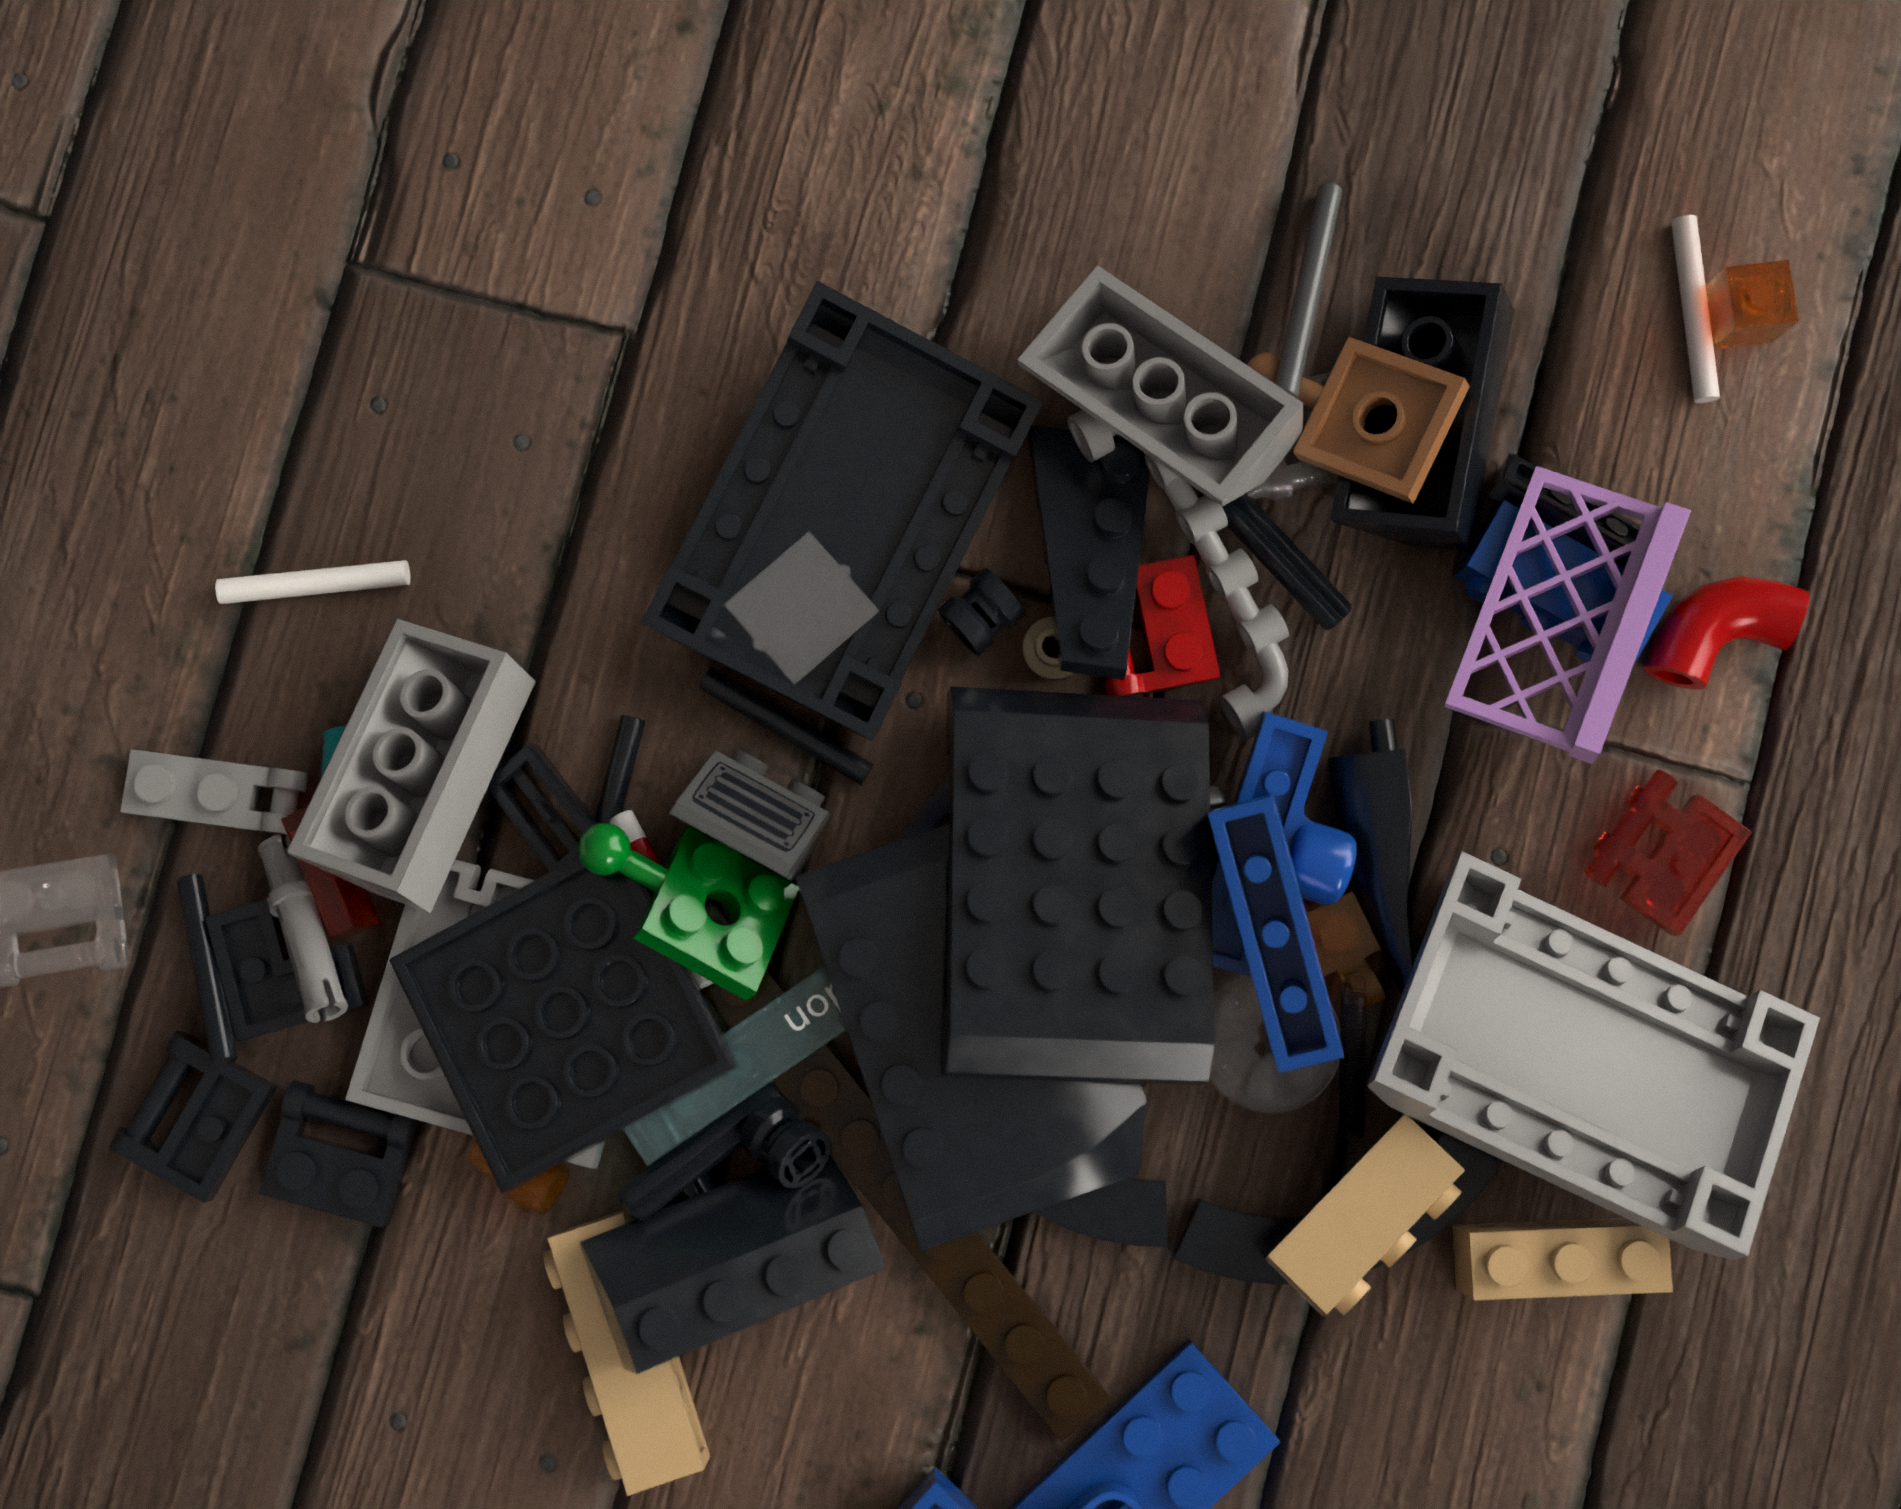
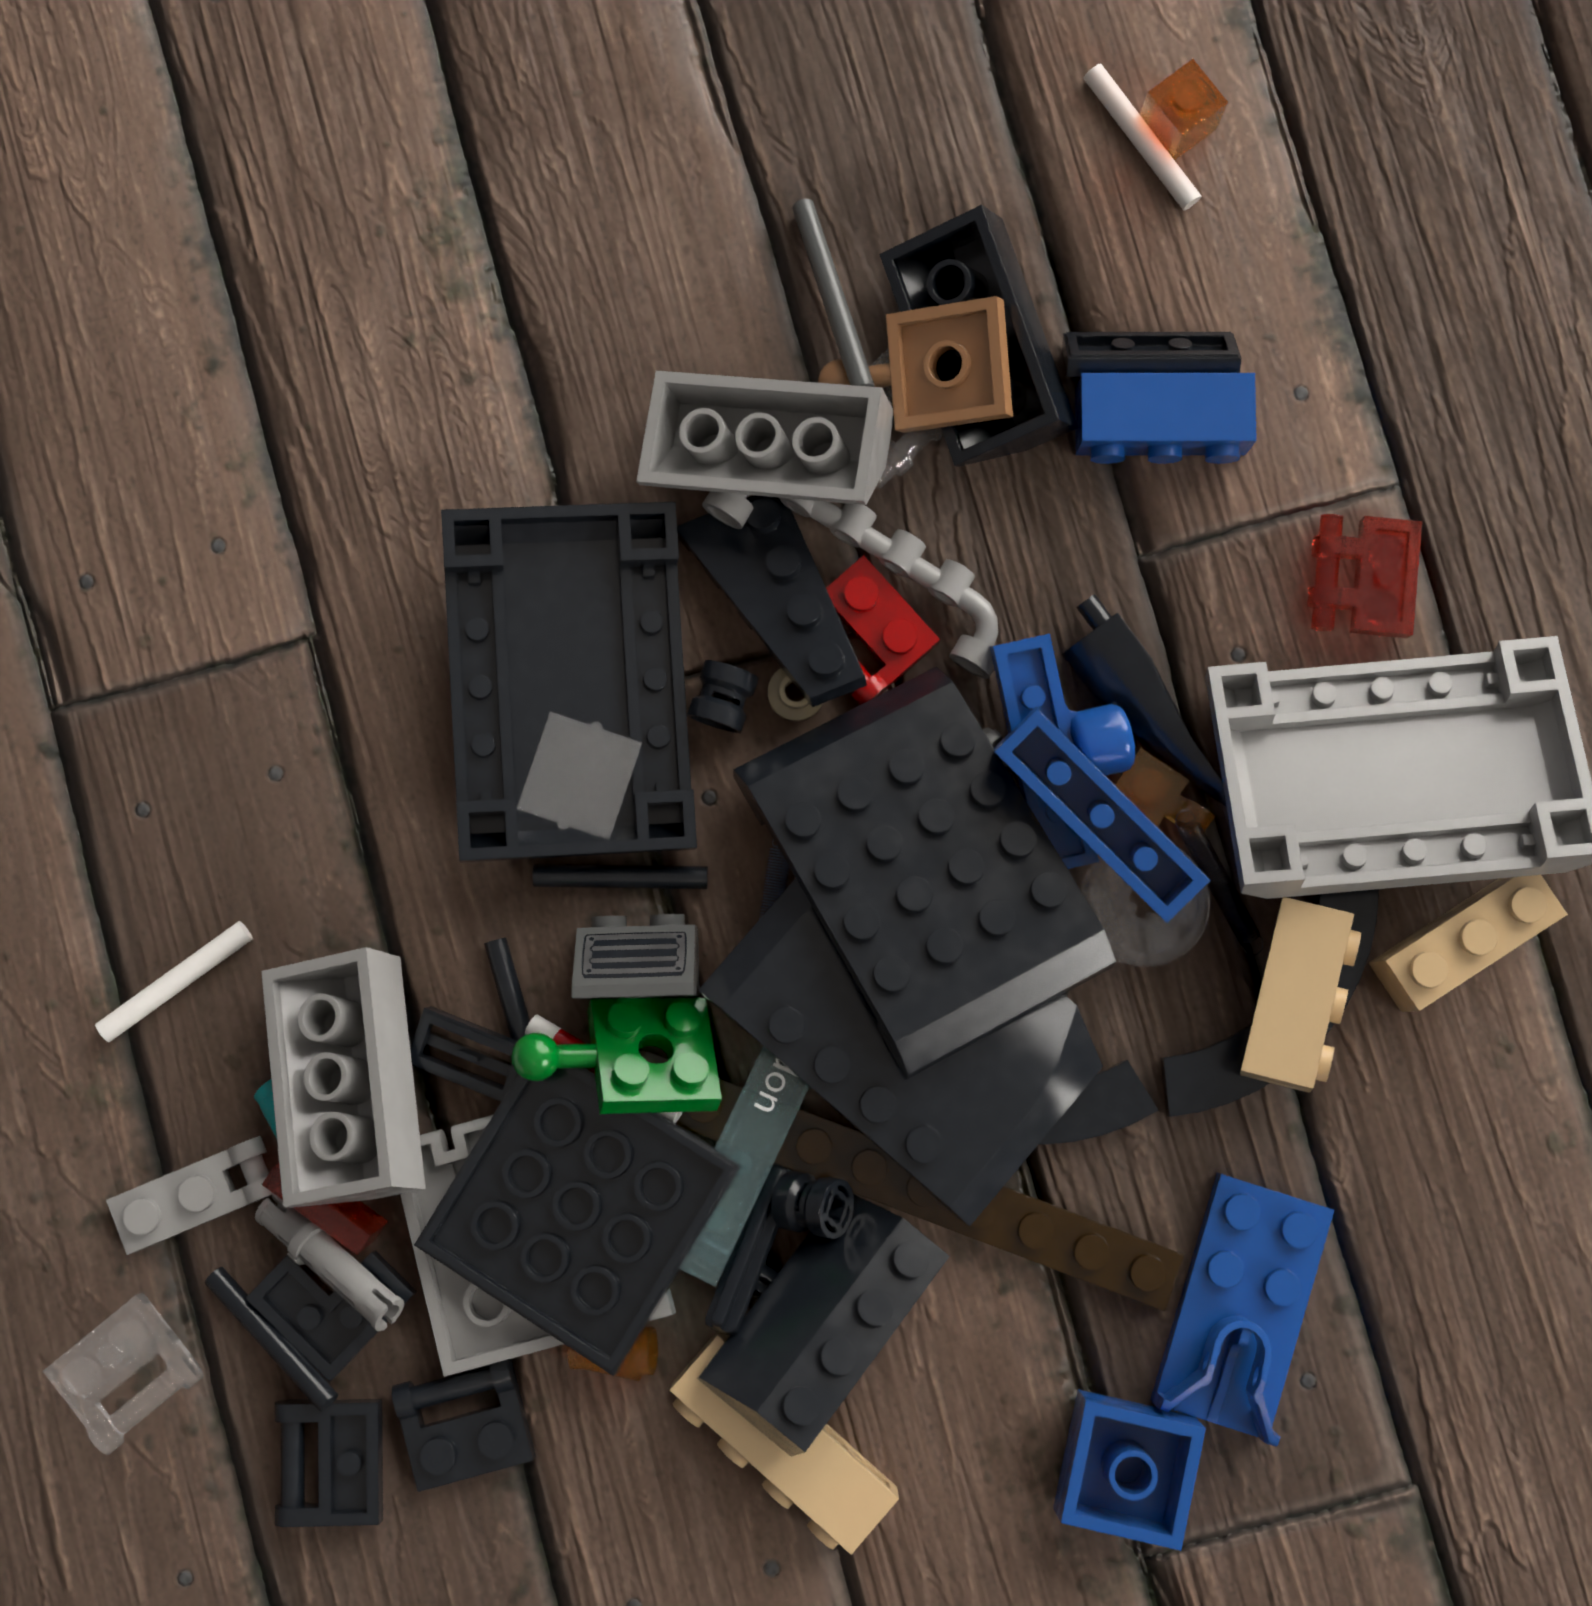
camera: 25 degrees left, 0 degrees up
(1286, 562) = (940, 519): black axle -> none
(1622, 630) = (1232, 425): lavender fence -> none
(1719, 614) = (1297, 368): red cylinder -> none

